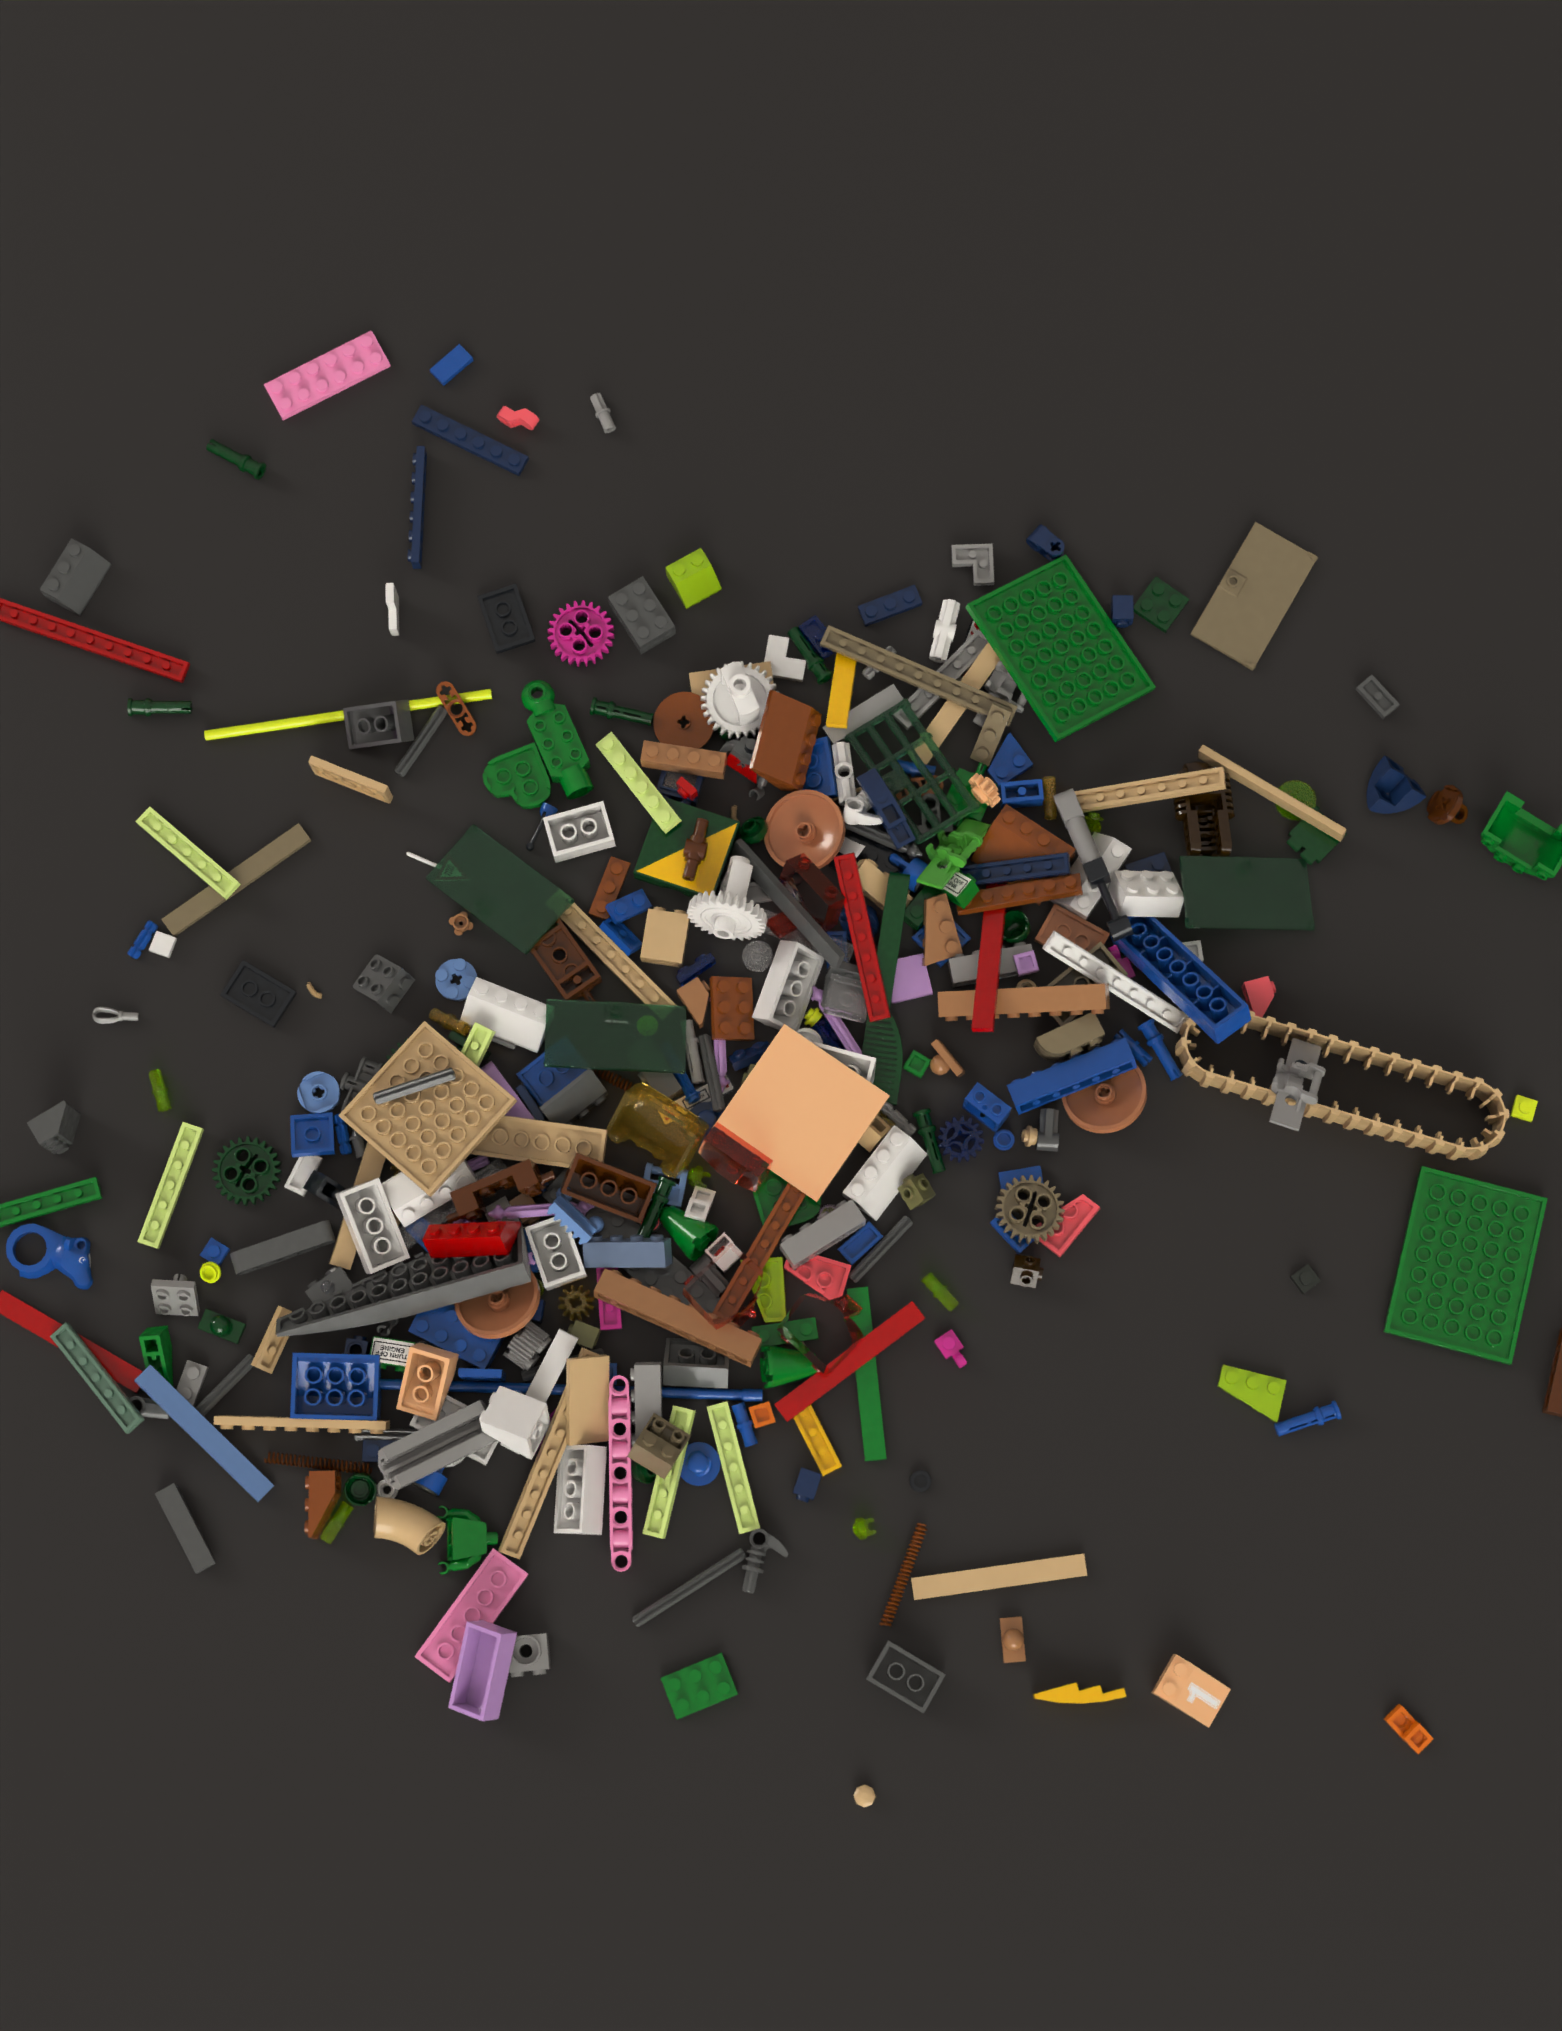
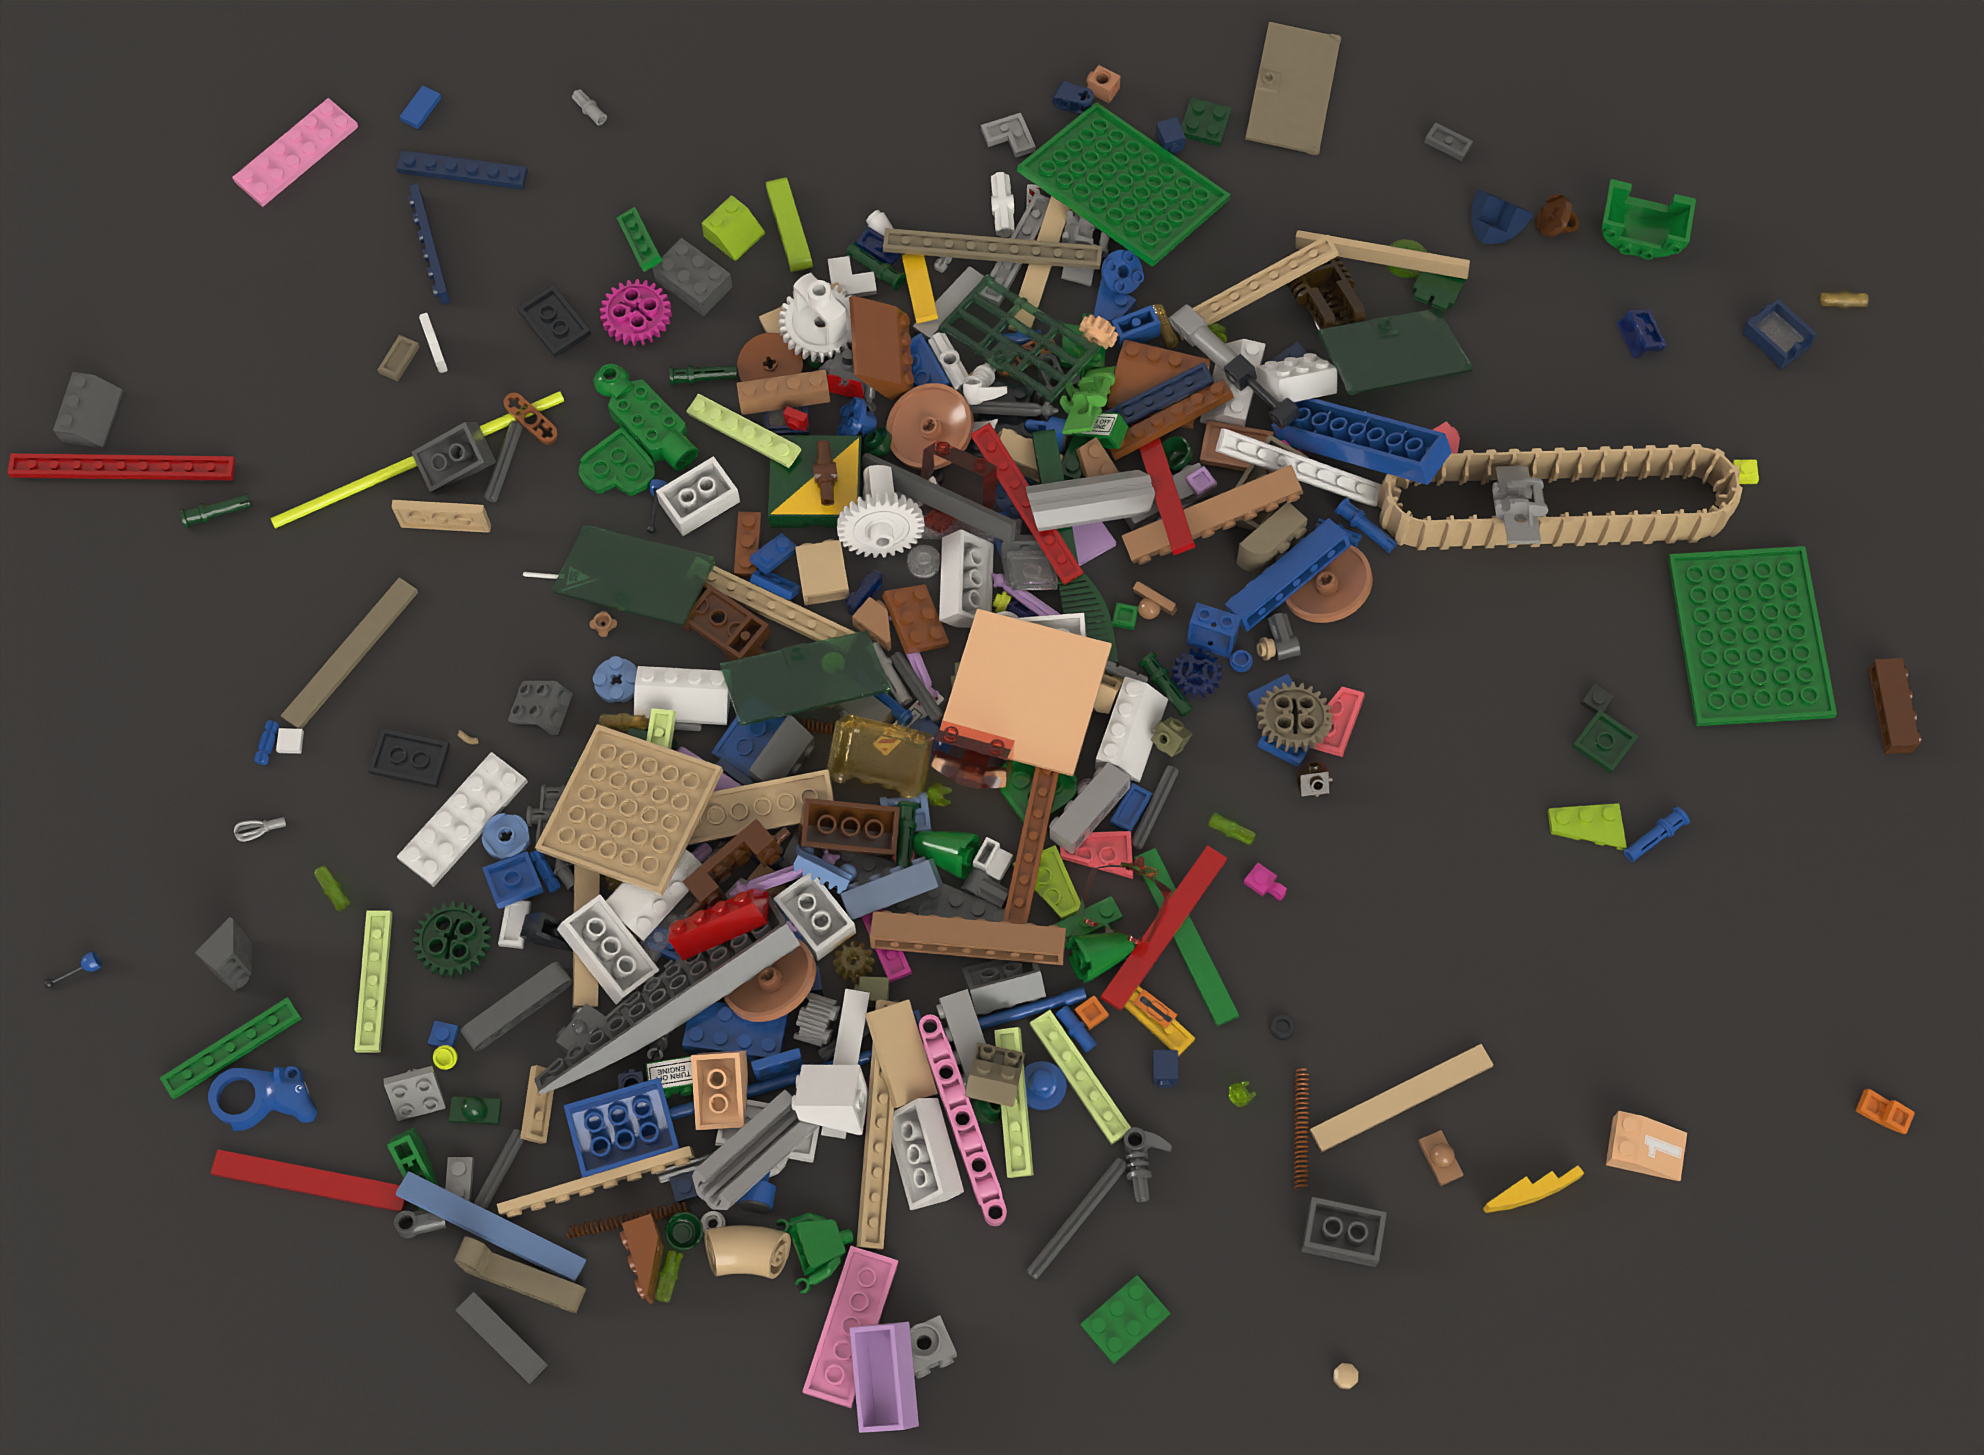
camera: 20 degrees left, 10 degrees down
(97, 1377) = (353, 1206): sand green tile -> none
(188, 853) = (290, 640): yellowish green plate -> none
(214, 1482) = (480, 1262): none -> dark tan beam
(244, 462) = (234, 254): dark green pin -> none
(287, 1064) = (462, 819): none -> white plate
(359, 610) = (398, 358): none -> dark tan tile
(414, 1086) = (608, 789): axle -> none
(516, 418) = (507, 133): coral piece -> none
(605, 564) = (639, 239): none -> green plate
(700, 1203) = (950, 818): white slope -> none
(741, 802) = (856, 419): none -> blue plate
(743, 1058) = (946, 662): dark blue plate -> none
(745, 589) = (789, 224): none -> lime beam
(746, 1312) = (1033, 914): clear red piece -> none
(817, 1429) = (1155, 1008): none -> orange sticker
(827, 615) = (878, 222): none -> white cone
(886, 808) = (1008, 374): dark blue slope -> none
(890, 605) = (939, 198): dark blue plate -> none
(919, 952) = (1091, 499): none -> light grey piece
(991, 733) = (1085, 280): dark tan plate -> none
(1027, 735) = (1122, 272): none -> blue plate
(1076, 545) = (1109, 88): none -> nougat brick
(1296, 1320) = (1605, 741): none -> dark green plate
(1482, 943) = (1641, 332): none -> clear blue bracket

